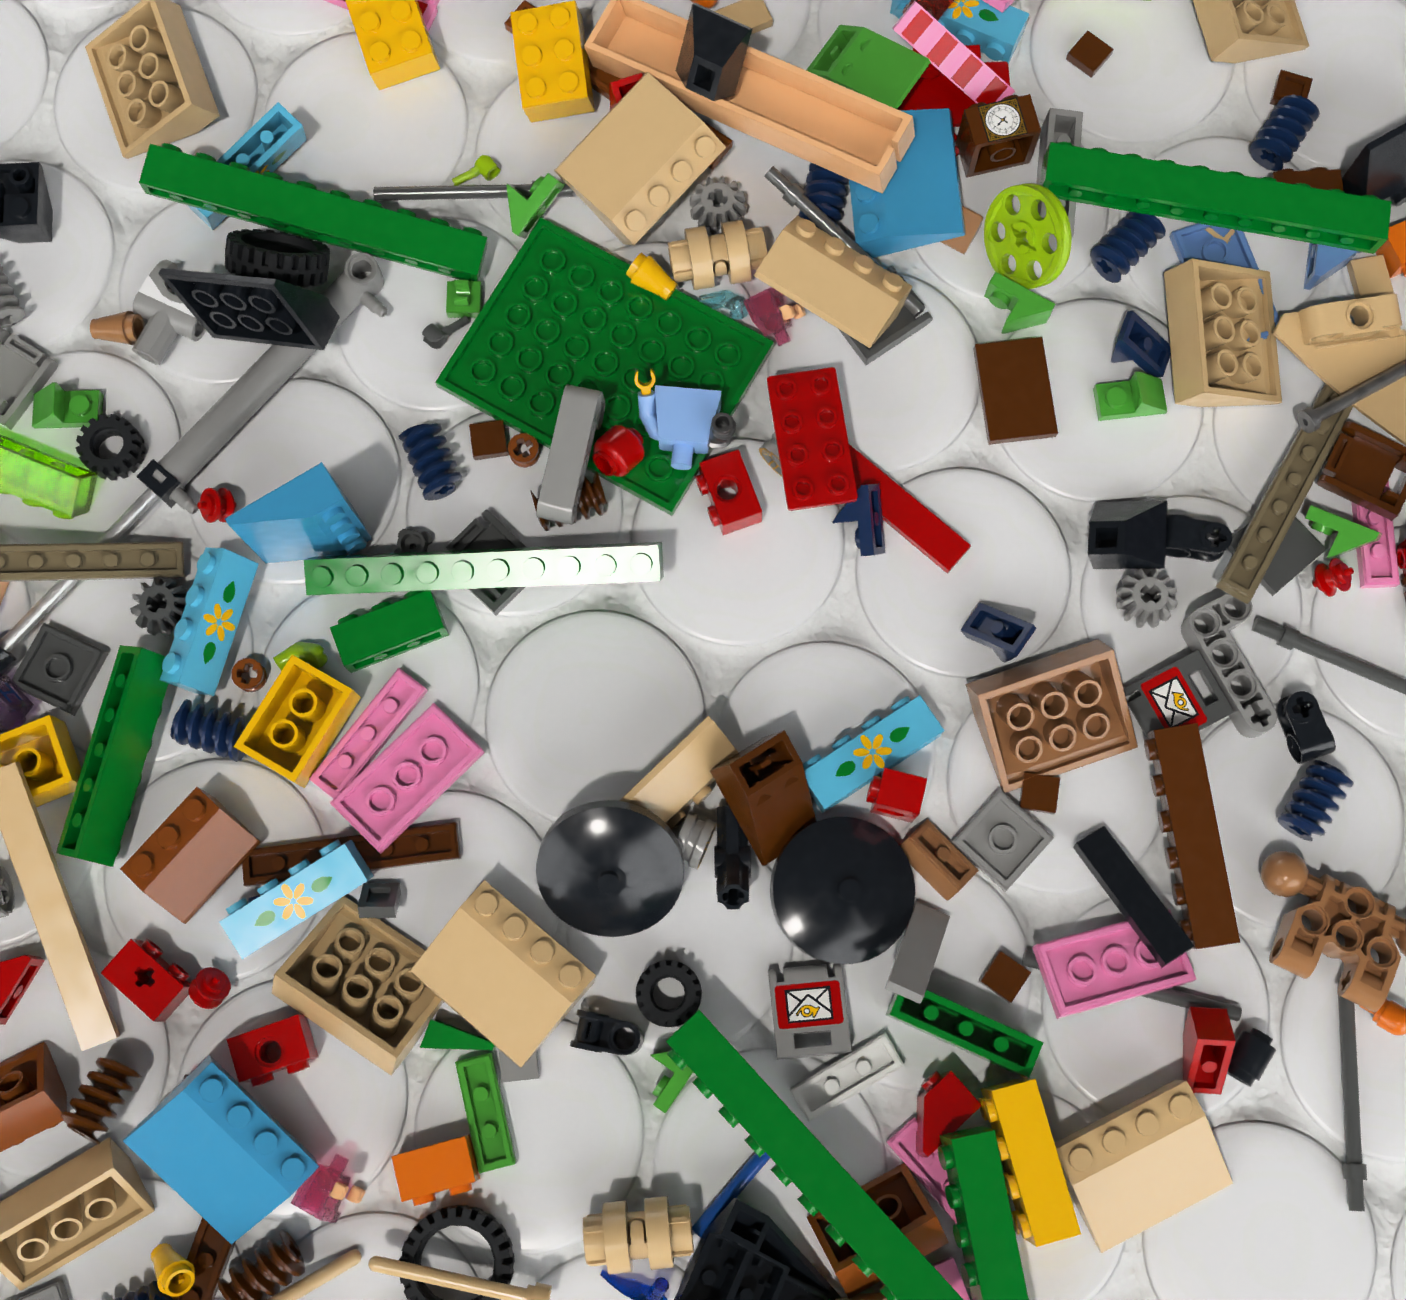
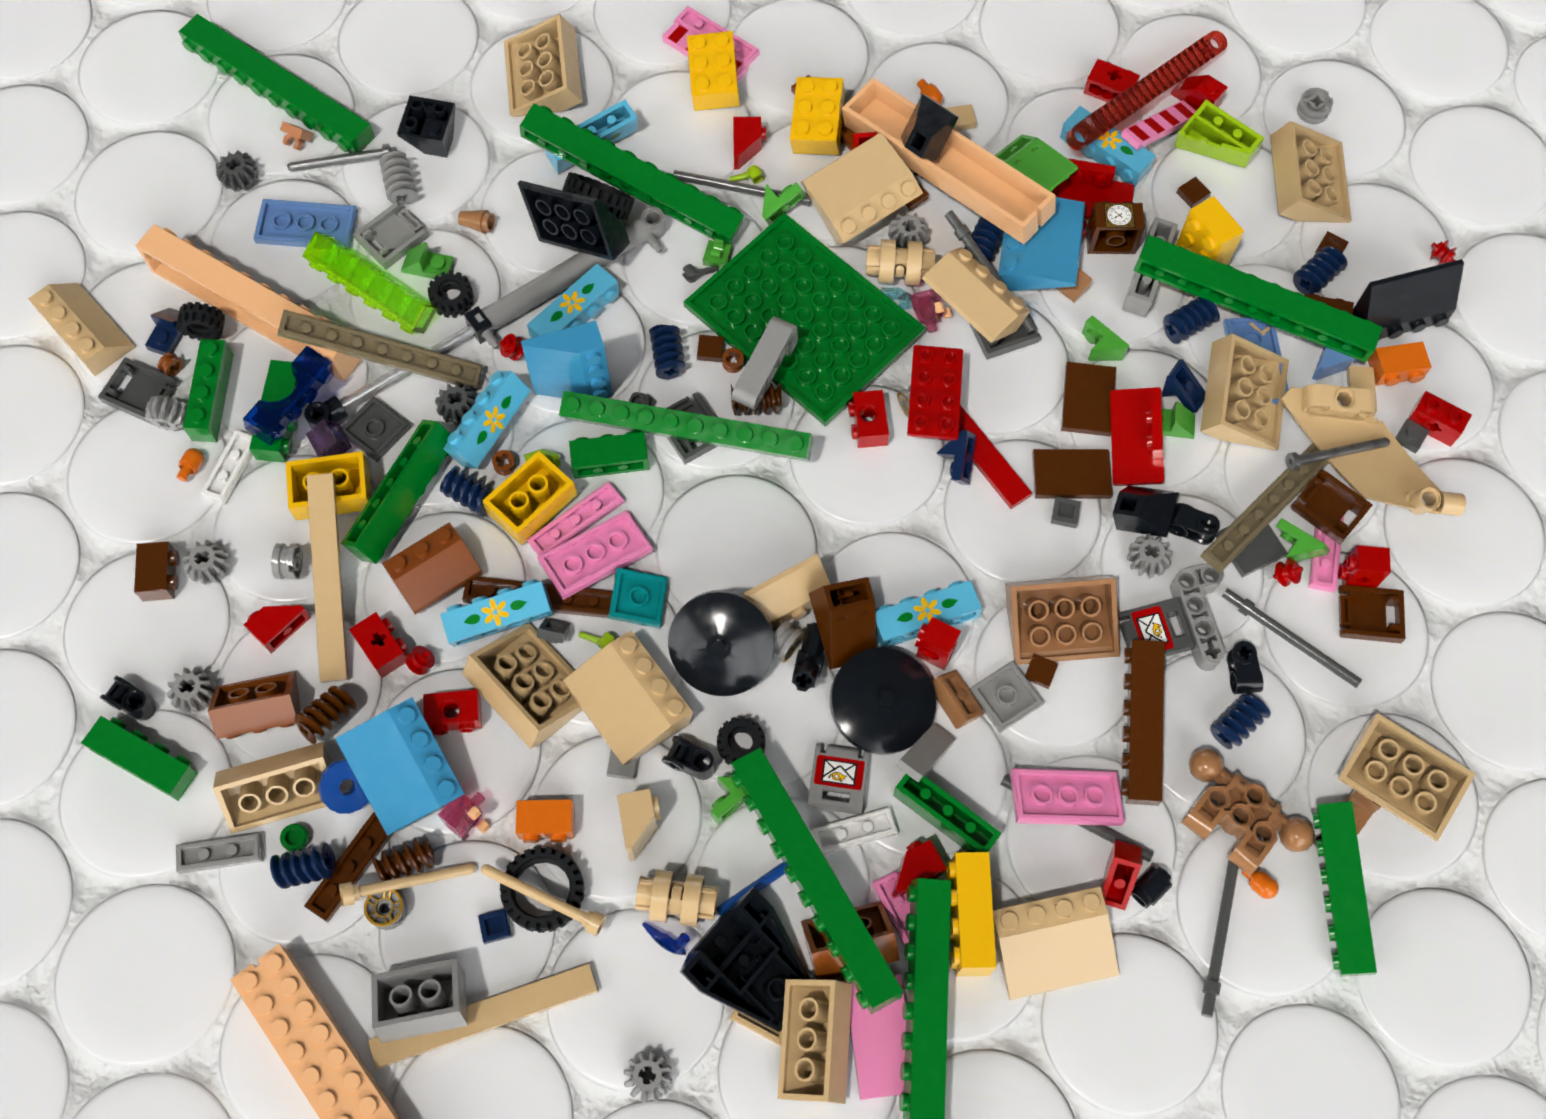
camera: 10 degrees right, 10 degrees down
(108, 1275) = (294, 837): none -> green tile
(146, 1213) = (330, 793): none -> blue tile
(165, 317) = (511, 219): light grey connector -> none
(172, 1271) = (342, 842): yellow cone -> none
(287, 427) = (577, 303): none -> medium azure brick
(444, 1036) = (576, 734): green piece -> none
(453, 897) = (601, 642): none -> lime hand
(462, 117) = (747, 139): none -> red slope
(480, 825) = (638, 598): none -> teal tile
(485, 1112) = (589, 793): bright green tile -> none
(559, 1144) = (639, 820): none -> tan slope
(618, 451) = (798, 371): red head -> none
(650, 276) = (849, 264): yellow cone -> none
(683, 420) = (849, 361): light blue torso -> none
(951, 56) = (1092, 167): tile -> none
(998, 631) = (1037, 552): dark blue slope -> none
(1005, 977) = (985, 790): reddish brown tile -> none
(1017, 504) = (1071, 473): none -> reddish brown tile
(1022, 562) = (1065, 512): none -> dark grey plate
(1037, 235) = (1120, 294): lime wedge -> none
(1094, 432) = (1137, 436): none -> red bracket
(1131, 117) = (1211, 231): none -> yellow brick
(1133, 896) = (1092, 754): black tile -> none

